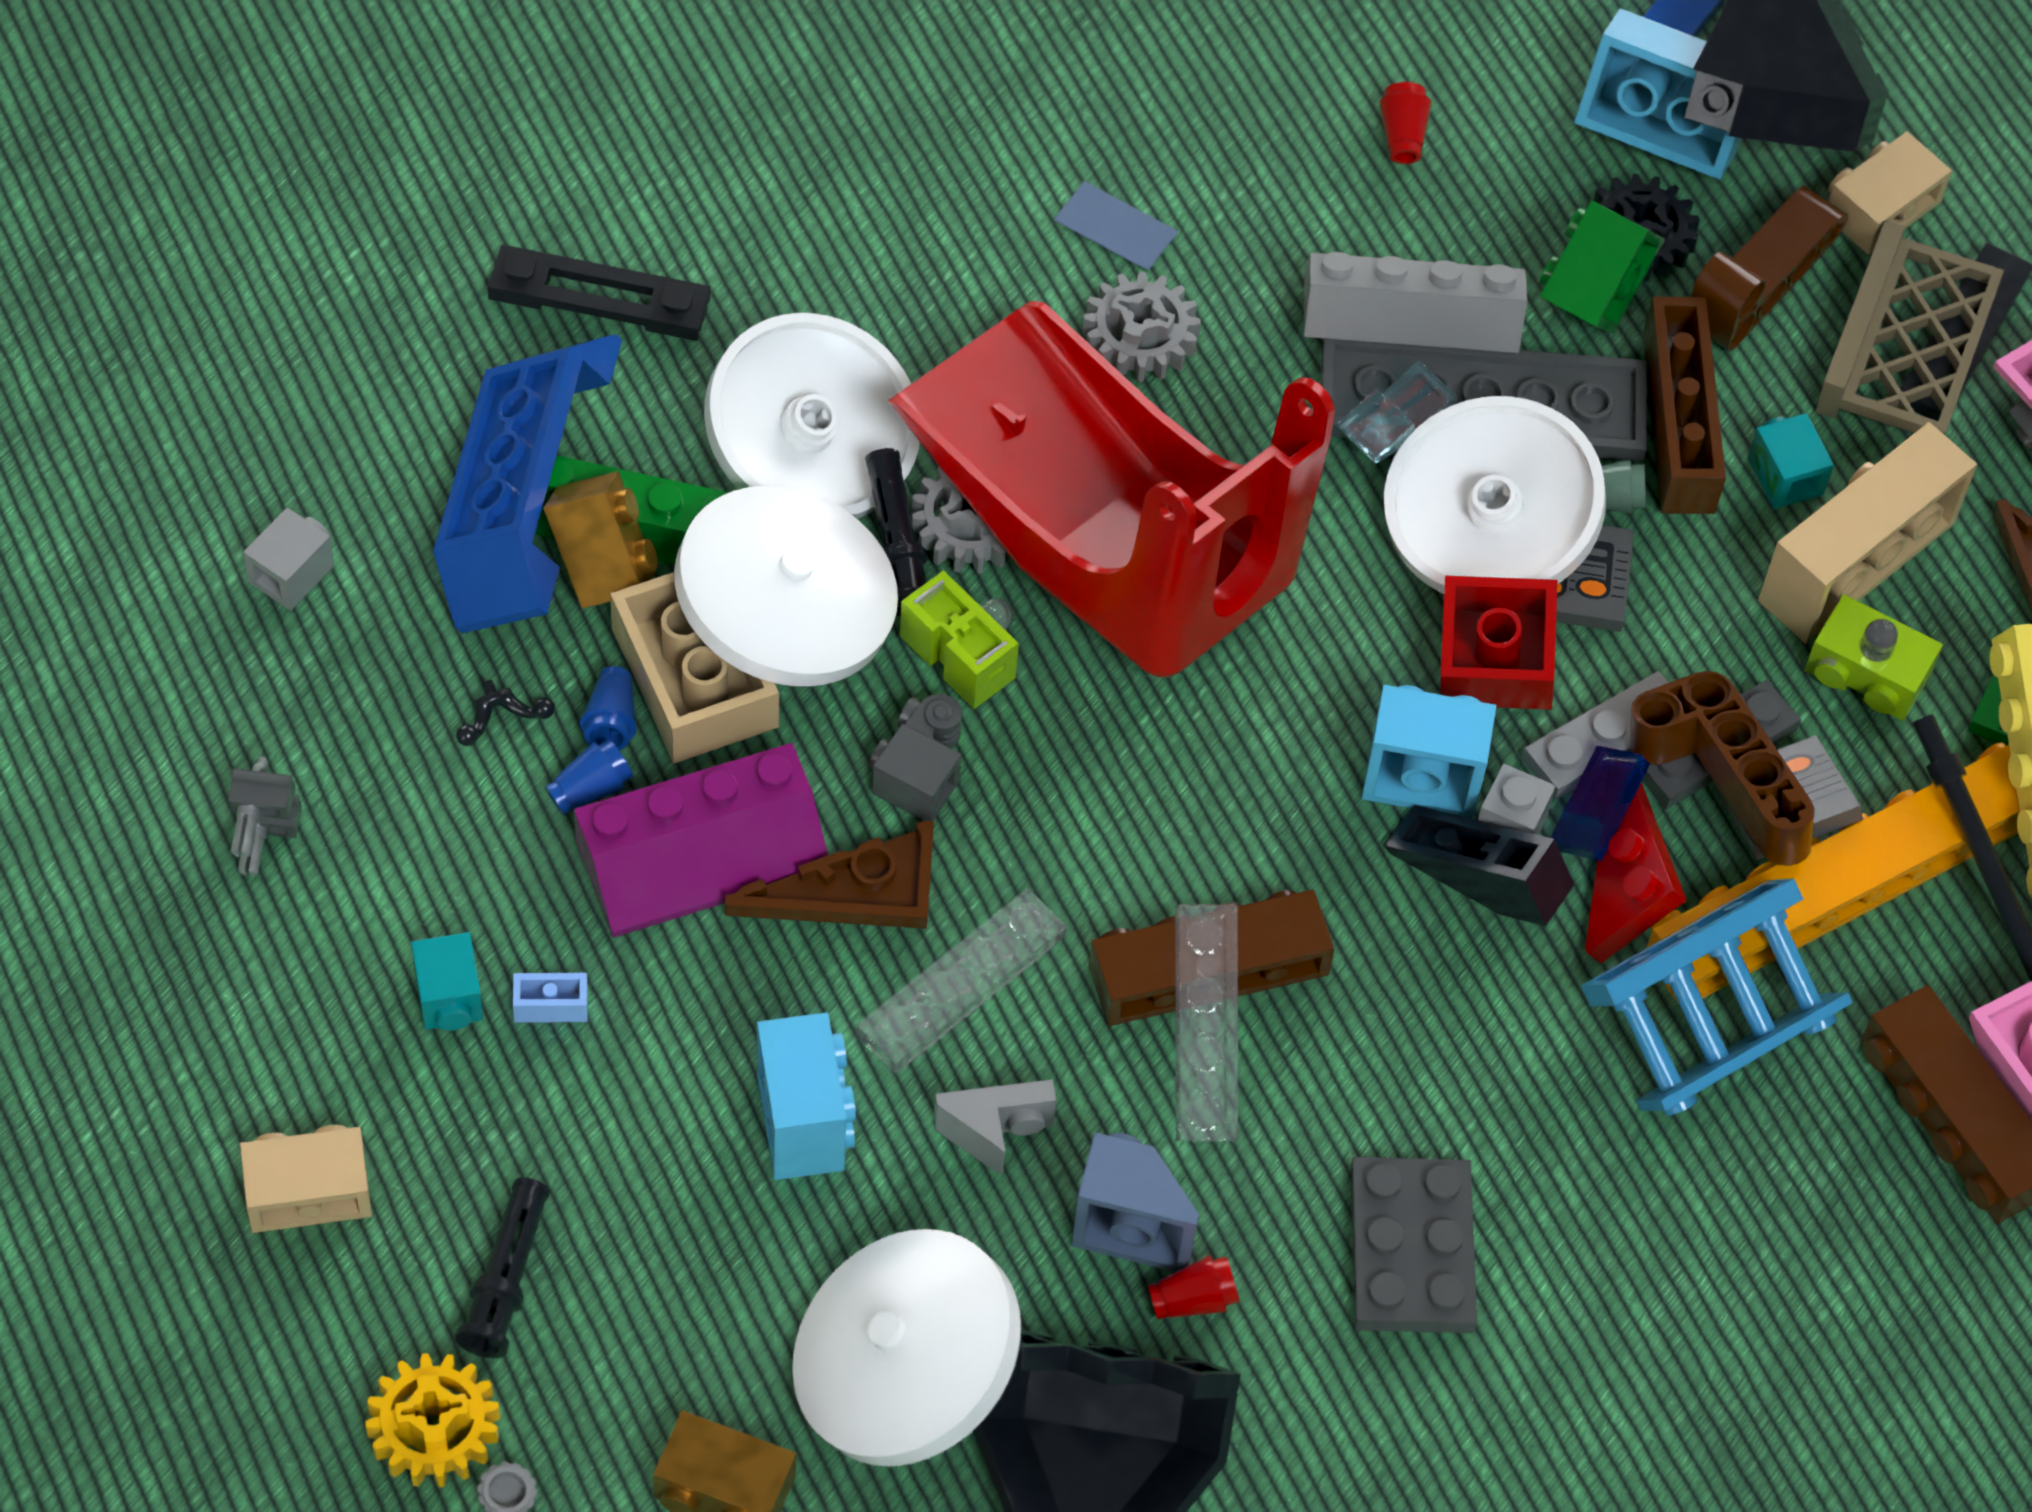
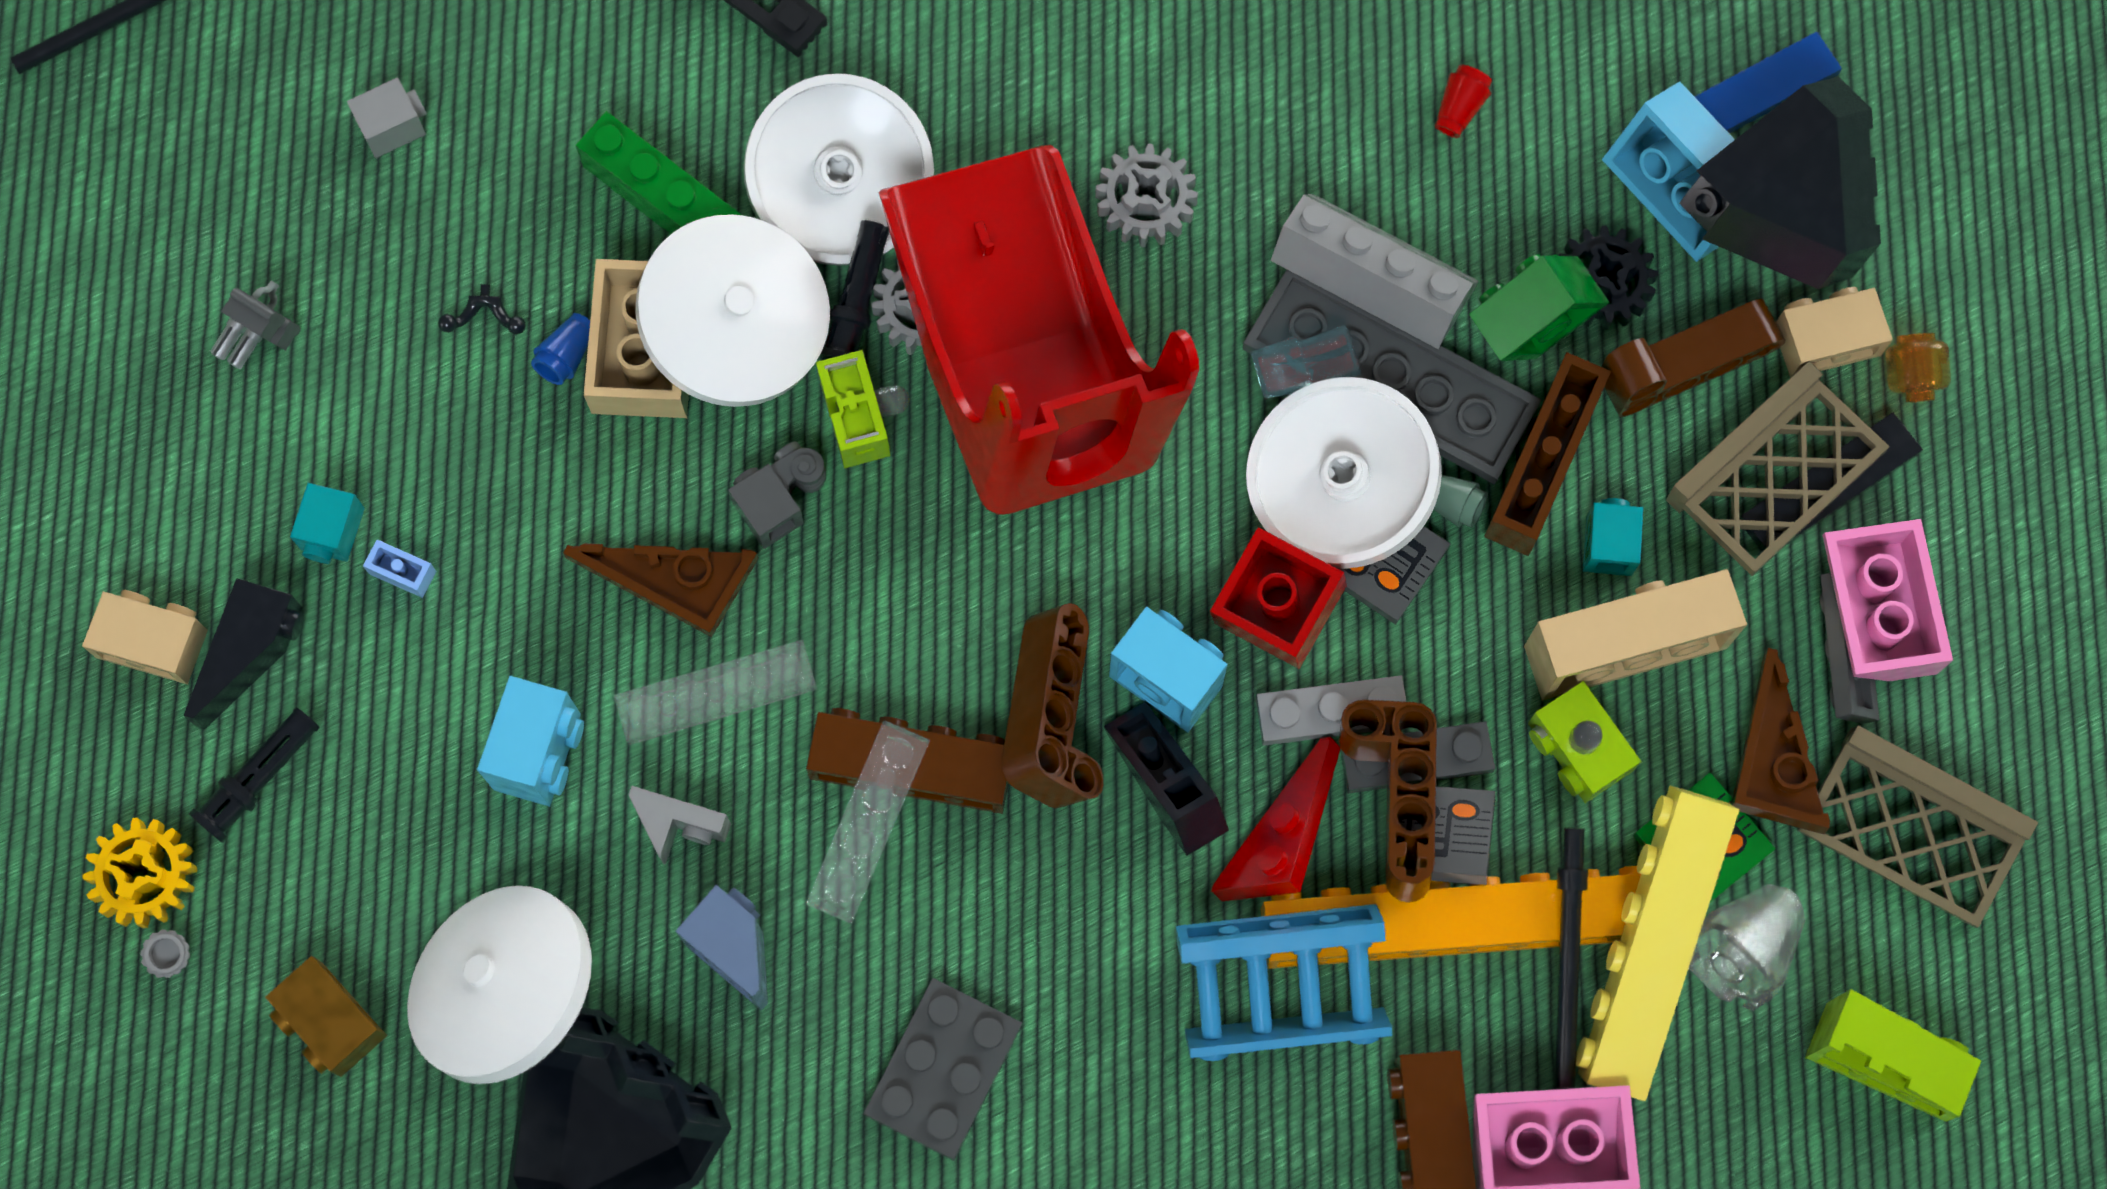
camera: 30 degrees right, 15 degrees up
(426, 1138) = (245, 645): none -> black slope
(501, 482) = (572, 118): blue slope -> none
(590, 777) = (520, 399): blue cone -> none
(600, 537) = (614, 207): pearl gold brick -> none
(698, 838) = (573, 489): magenta slope -> none
(1116, 225) = (1181, 93): sand blue sticker -> none
(1195, 1290) = (754, 1031): red cone -> none
(1329, 844) = (1044, 710): none -> reddish brown beam
(1517, 801) = (1215, 747): light grey brick -> none
(1599, 802) = (1286, 770): clear blue tile -> none
(1986, 191) = (1918, 366): none -> clear orange head

